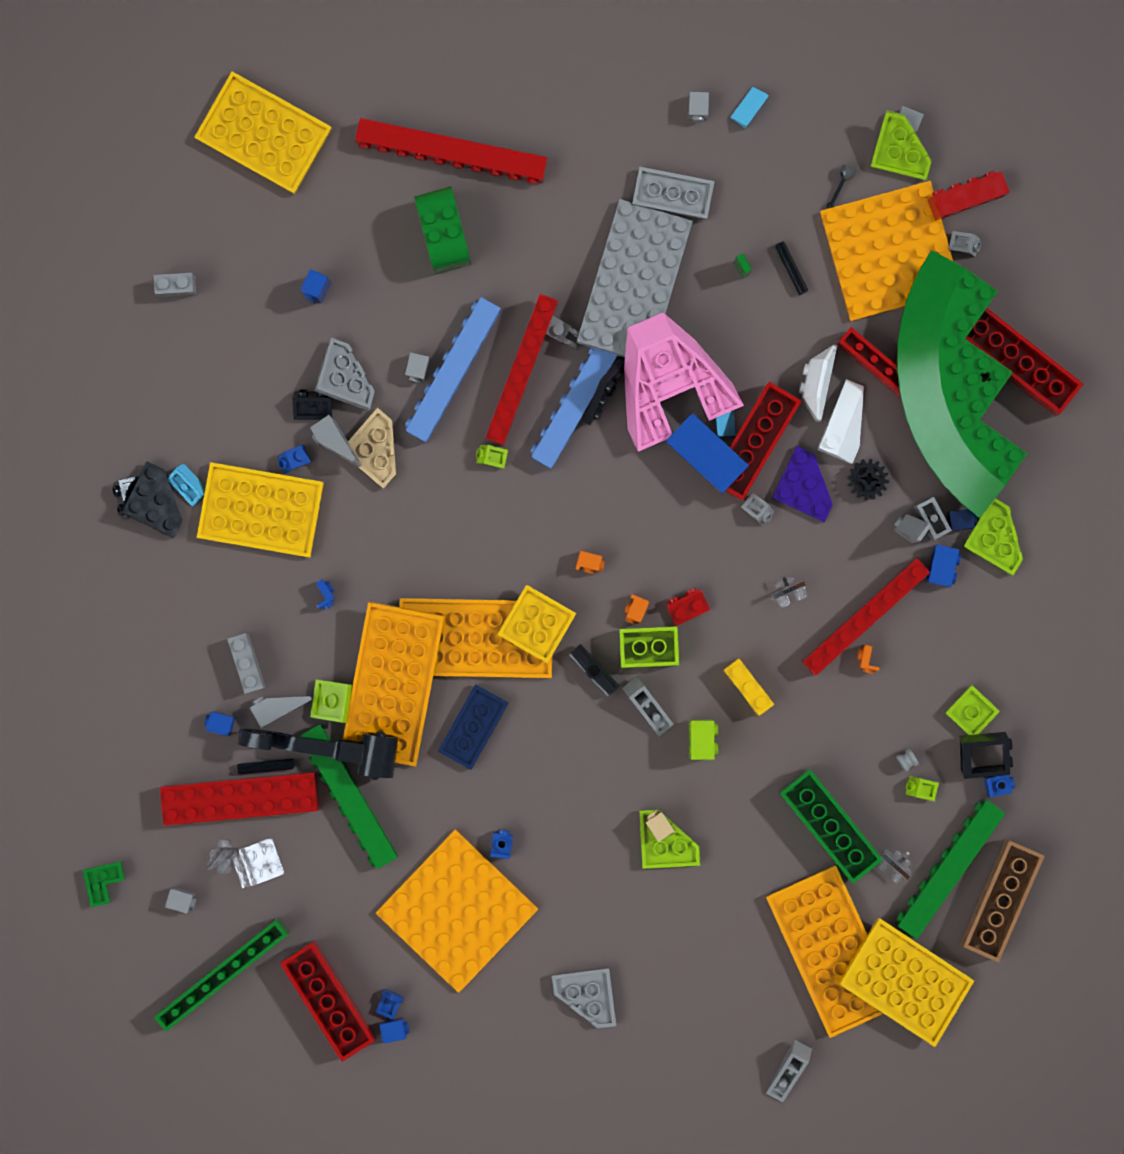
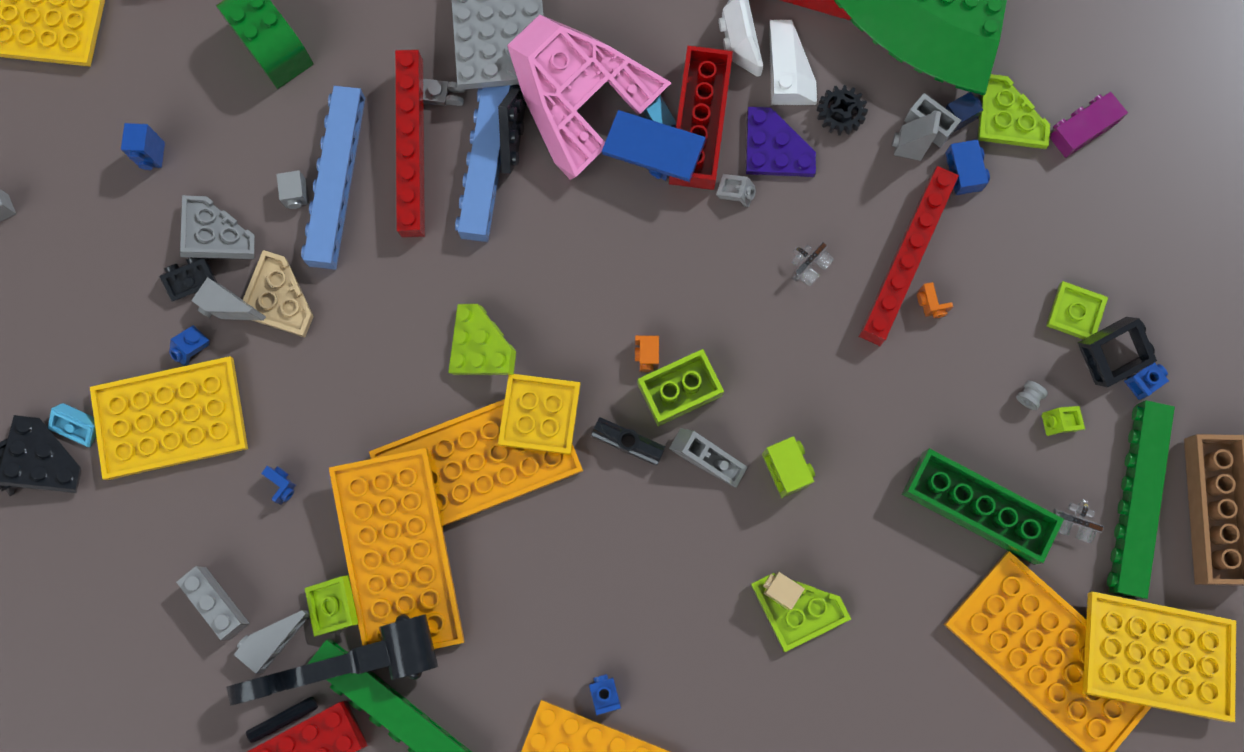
camera: 20 degrees left, 10 degrees down
(219, 723) = (206, 690): blue brick -> none
(473, 727) = (514, 566): dark blue plate -> none
(491, 456) = (414, 251): lime bracket -> none
(513, 551) = (479, 345): none -> lime plate
(590, 562) = (572, 322): orange brick -> none
(687, 607) = (704, 326): red bracket -> none
(748, 687) = (826, 392): yellow arch -> none
(1052, 570) = (1087, 123): none -> magenta brick

